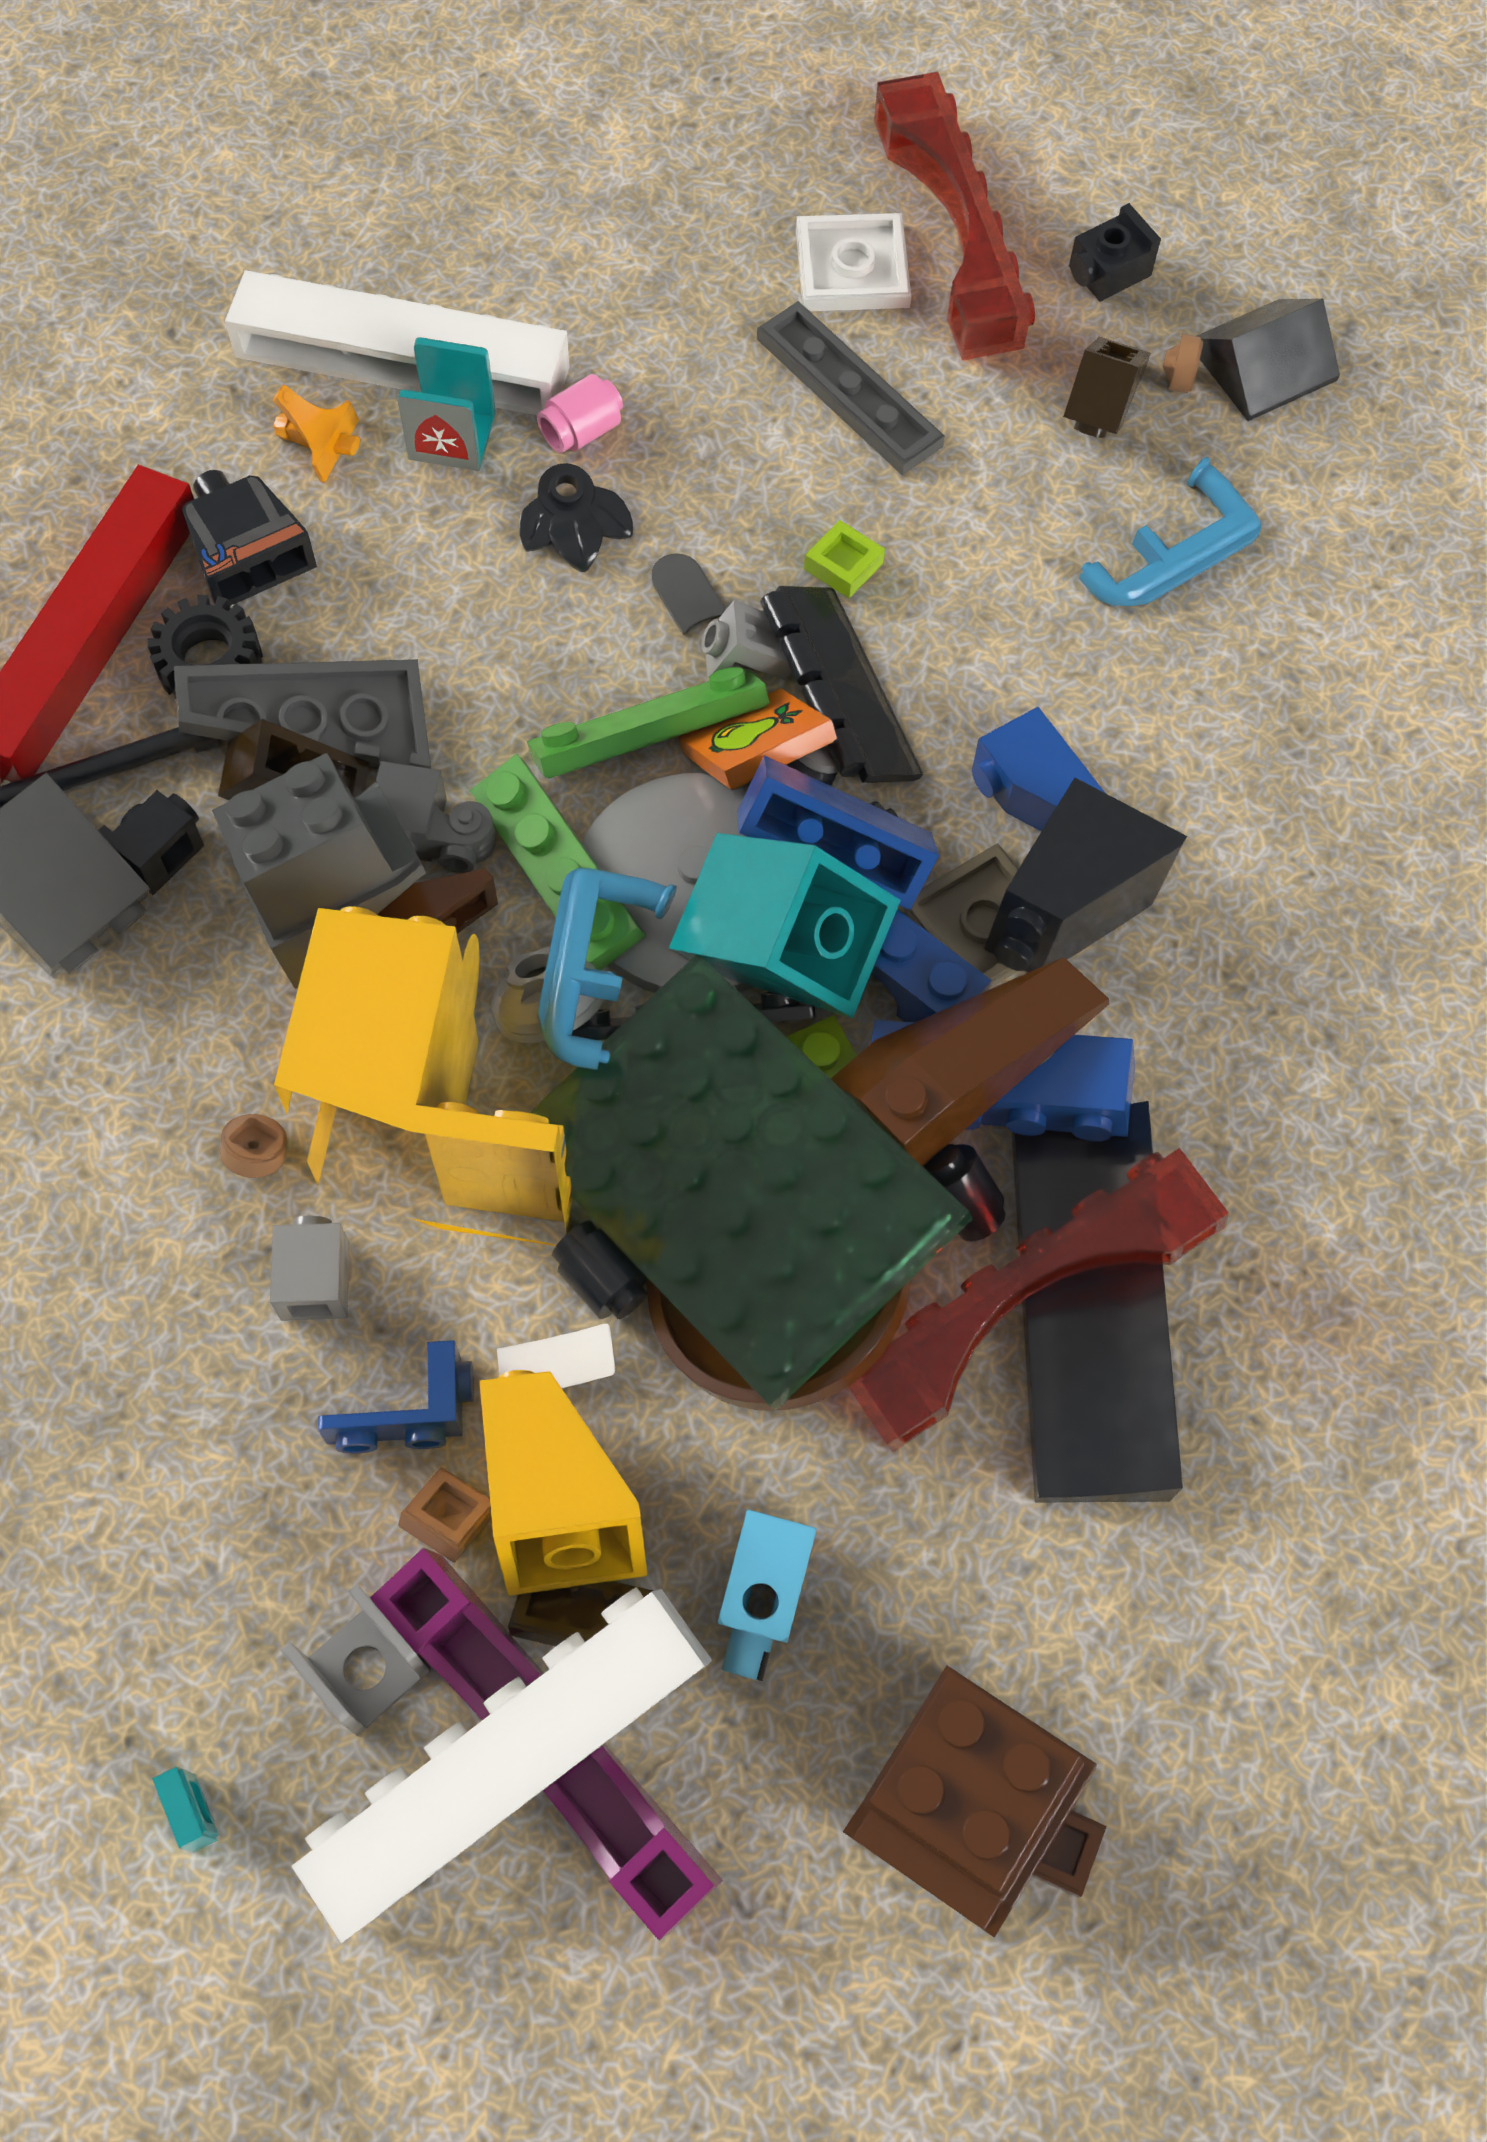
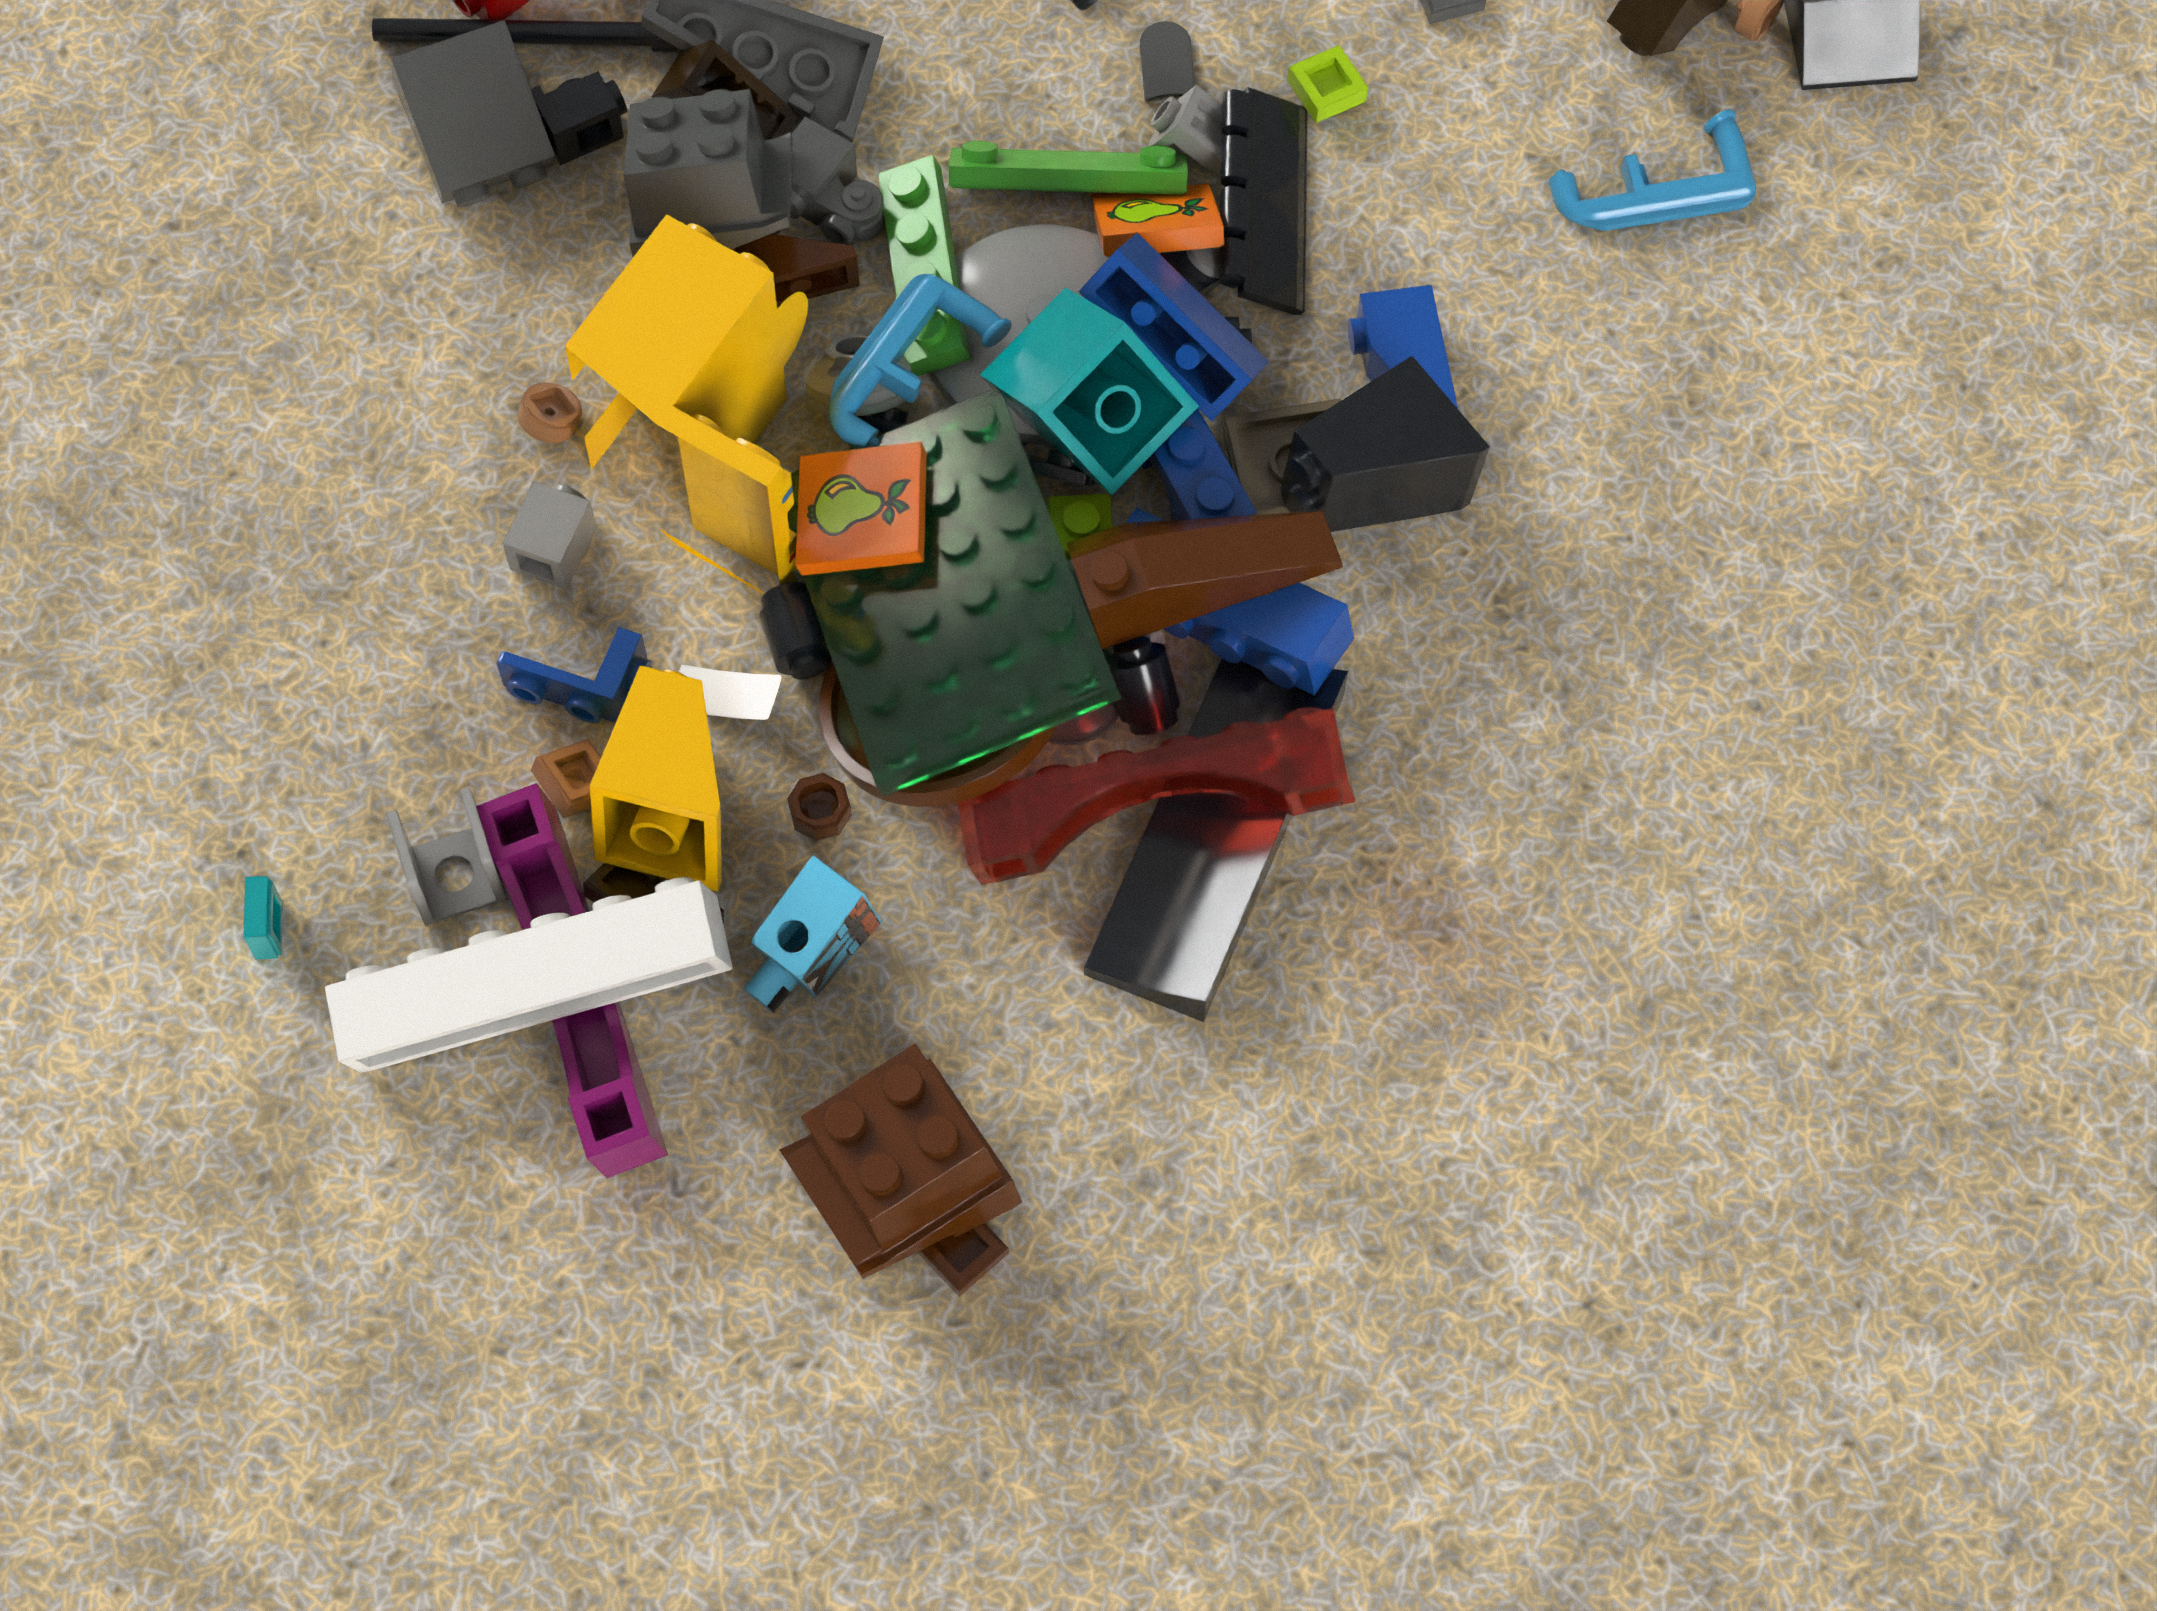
camera: 25 degrees right, 0 degrees up
(624, 1127) = (861, 508): none -> orange tile
(704, 1441) = (819, 806): none -> reddish brown tile

